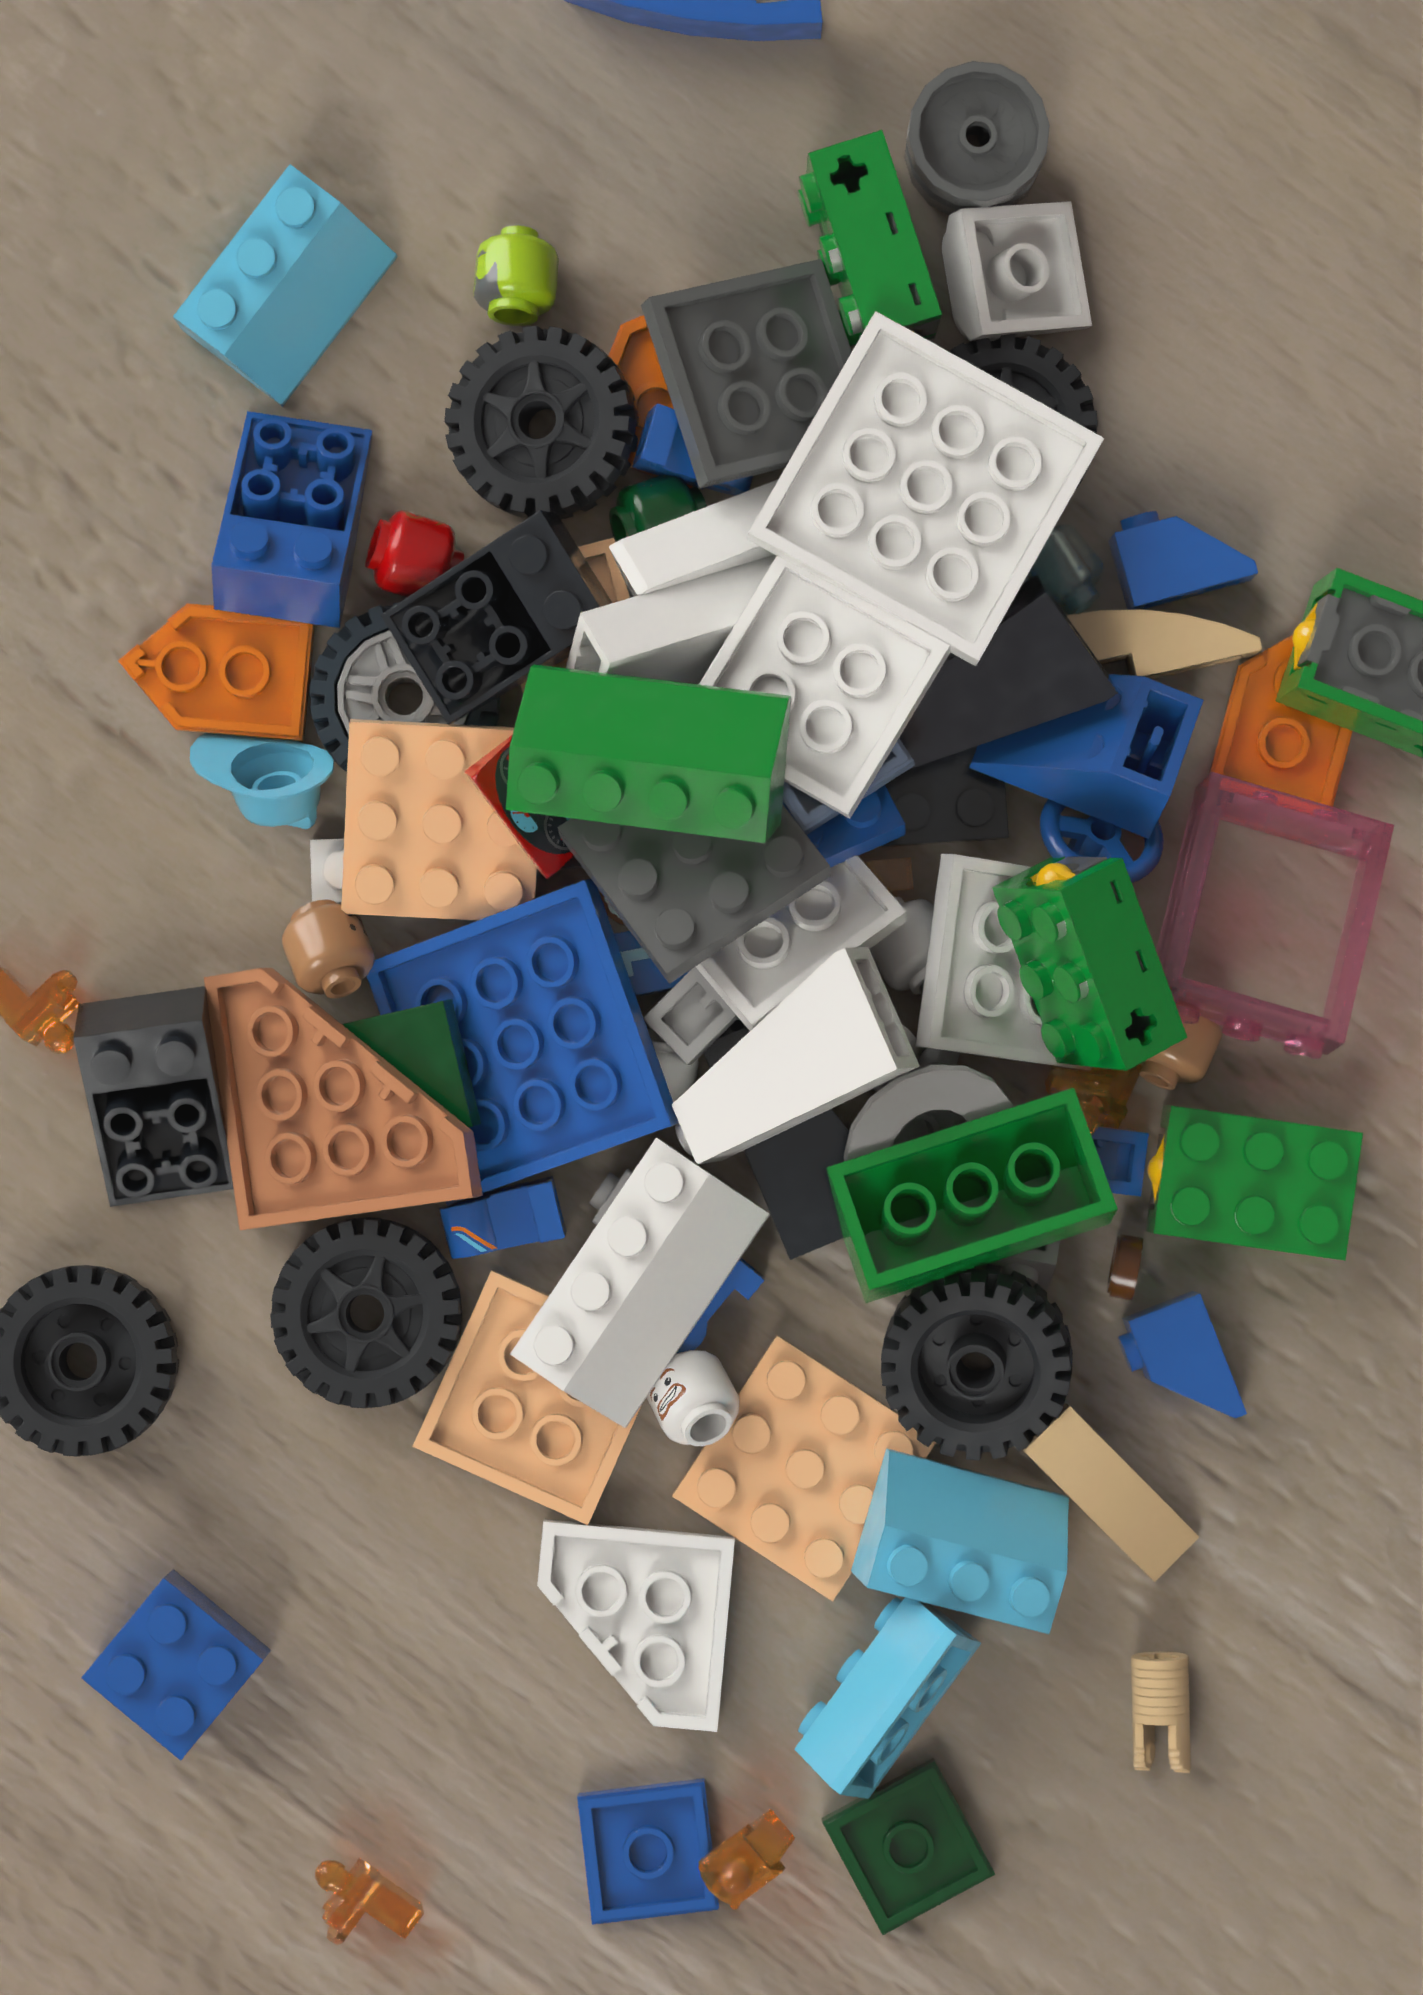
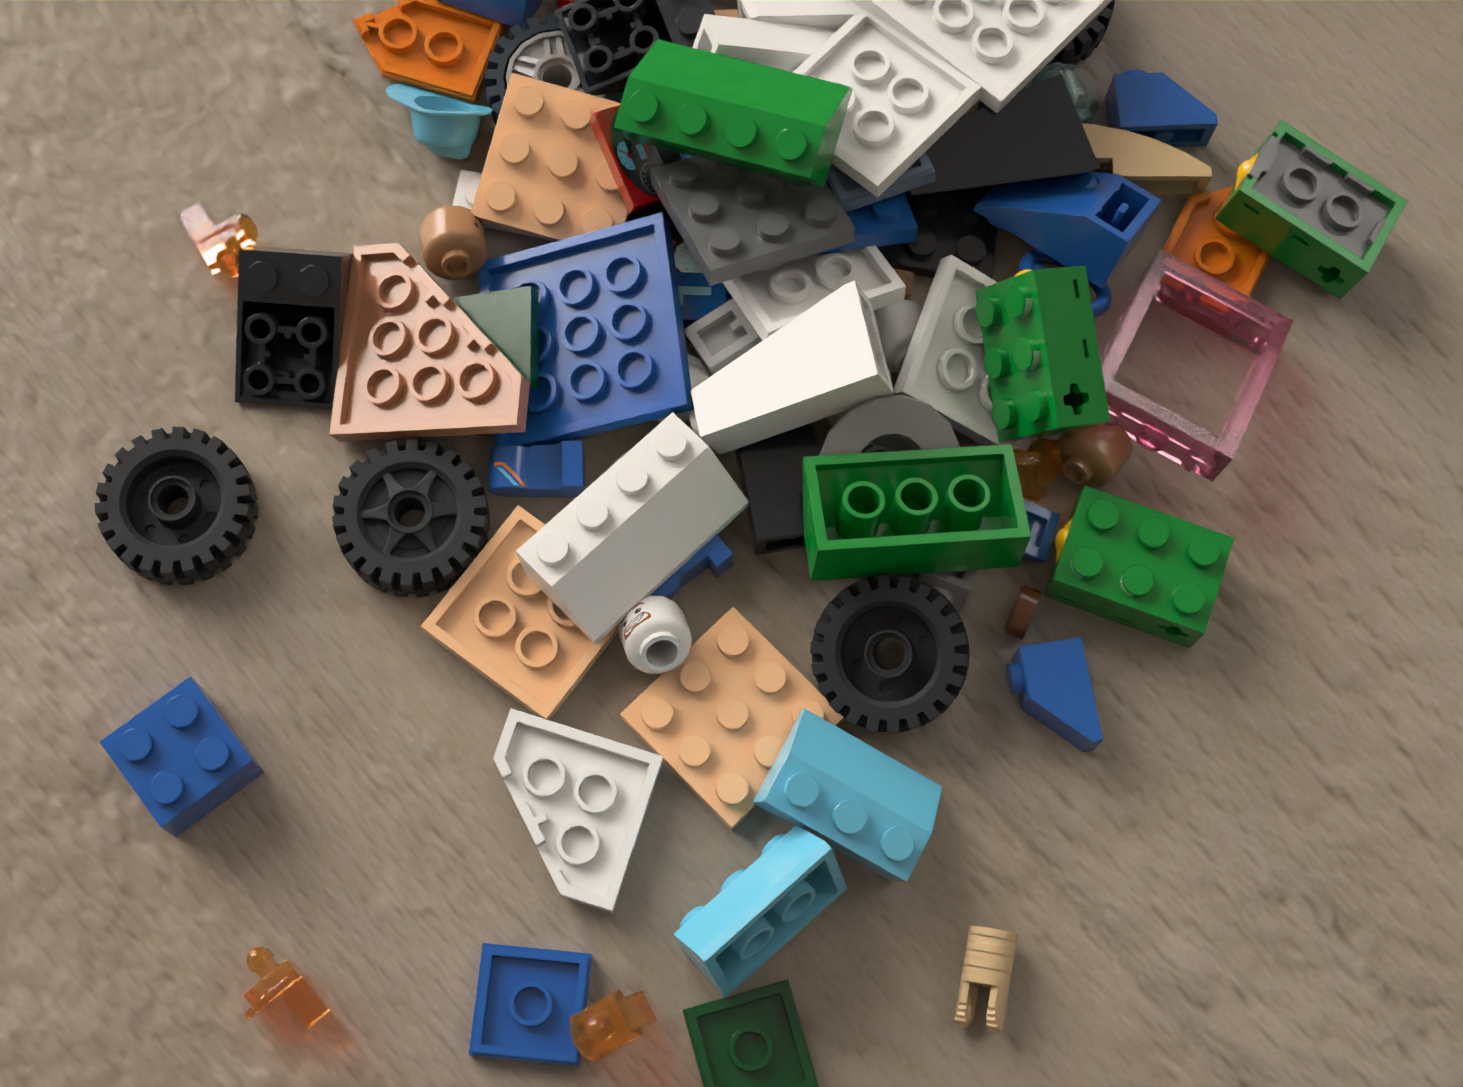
camera: 10 degrees right, 15 degrees down
(1111, 1493) = (977, 786): tan slope -> none

